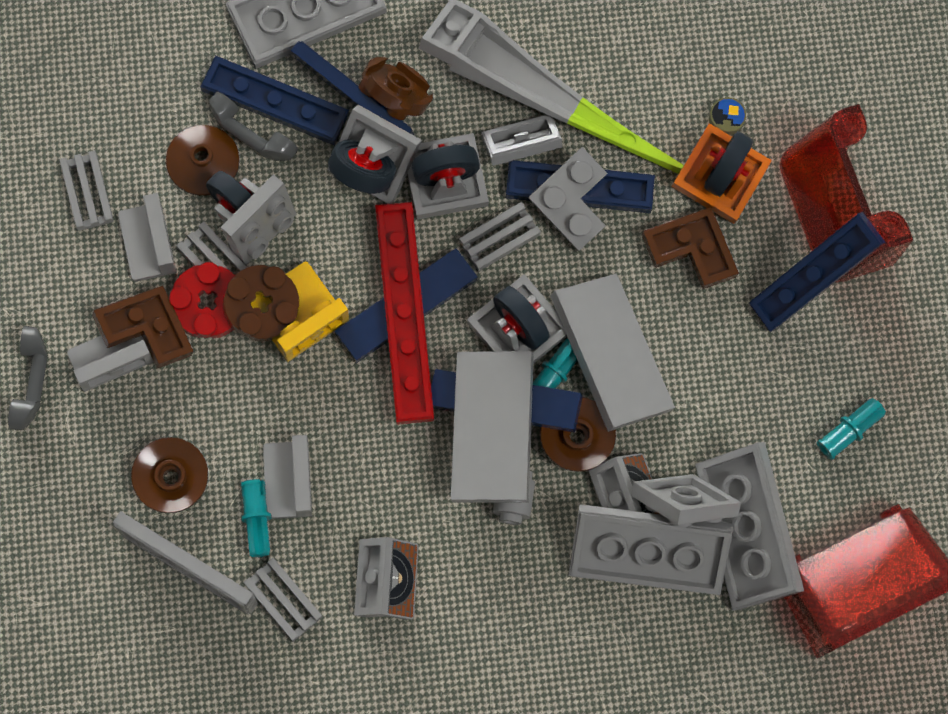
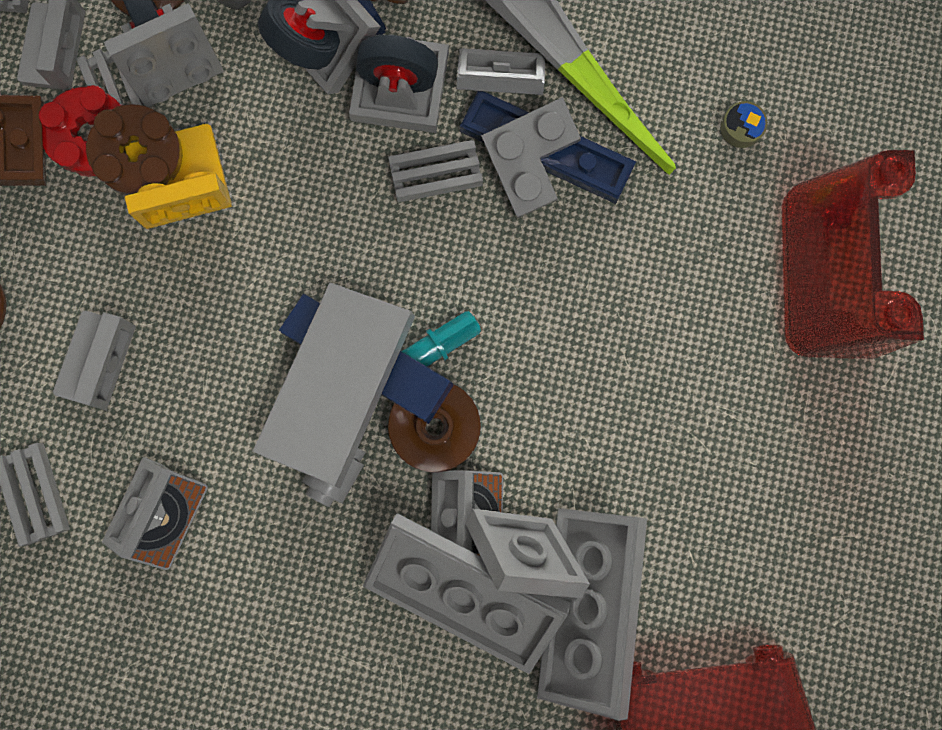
camera: 25 degrees right, 5 degrees up
(256, 517) = (36, 391): teal axle -> none
(404, 313) = (291, 219): red tile -> none
(438, 285) = (300, 211): dark blue tile -> none
(518, 321) = (418, 273): plate -> none
(612, 352) = (510, 345): light grey tile -> none
(697, 237) = (657, 248): reddish brown plate -> none
(722, 172) = (715, 183): orange plate -> none
(817, 272) = (790, 335): dark blue tile -> none
(851, 428) = (757, 532): teal axle -> none

